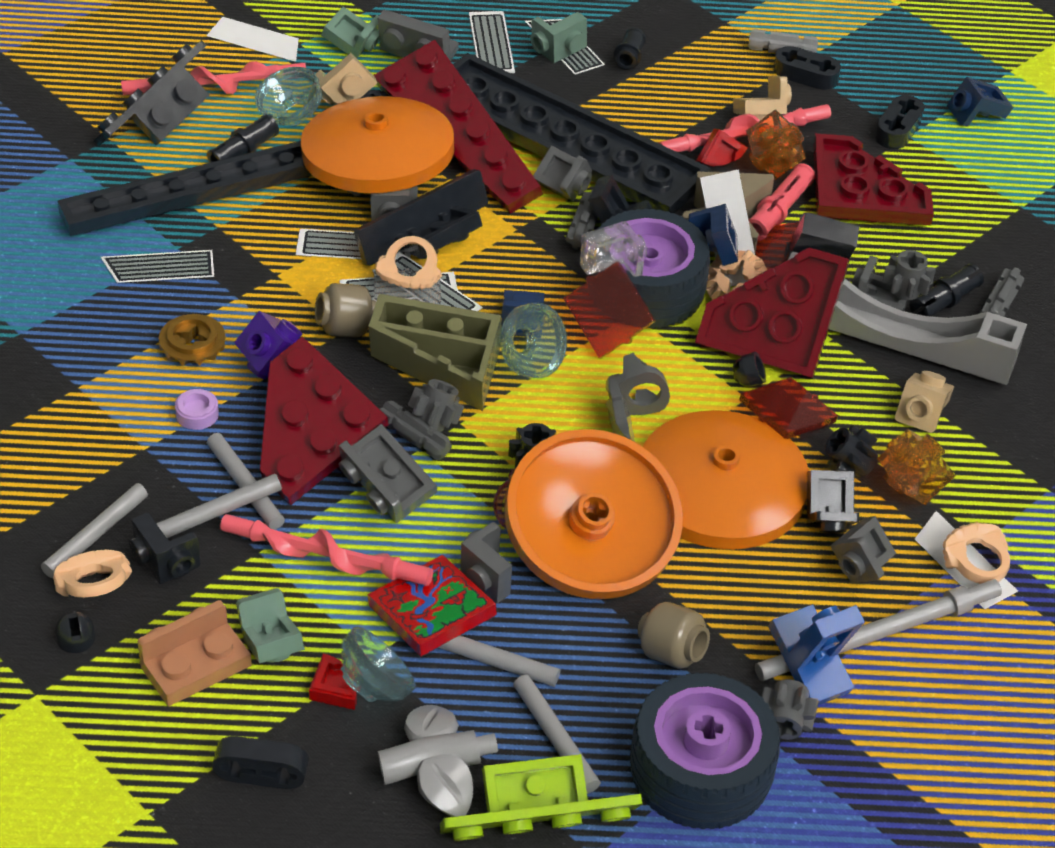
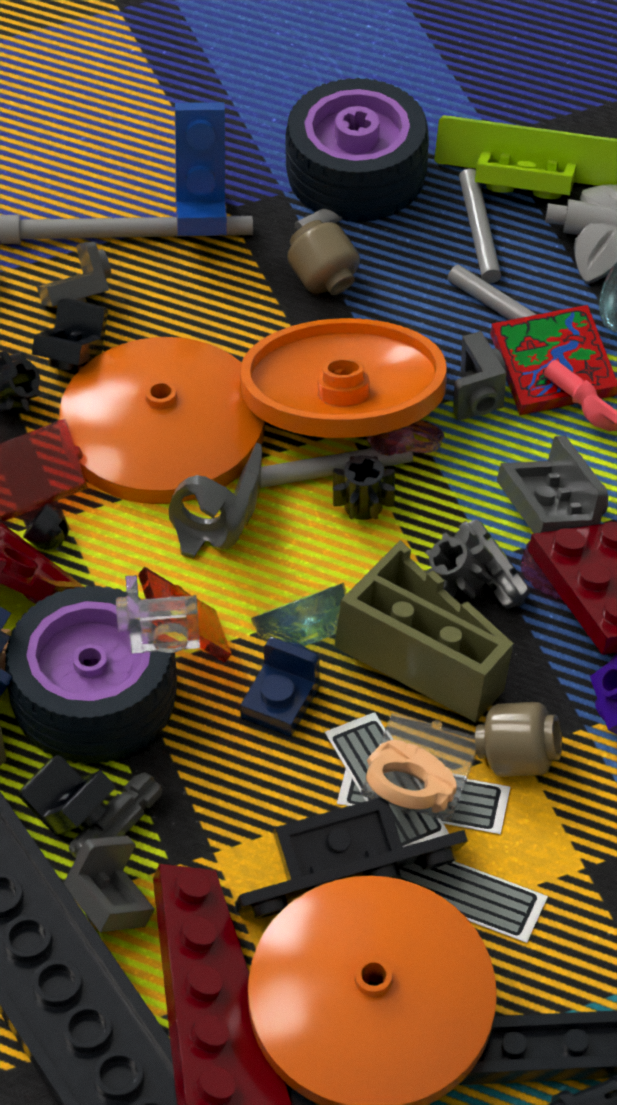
camera: 155 degrees left, 5 degrees up
(791, 707) = (255, 167): dark grey gear -> none

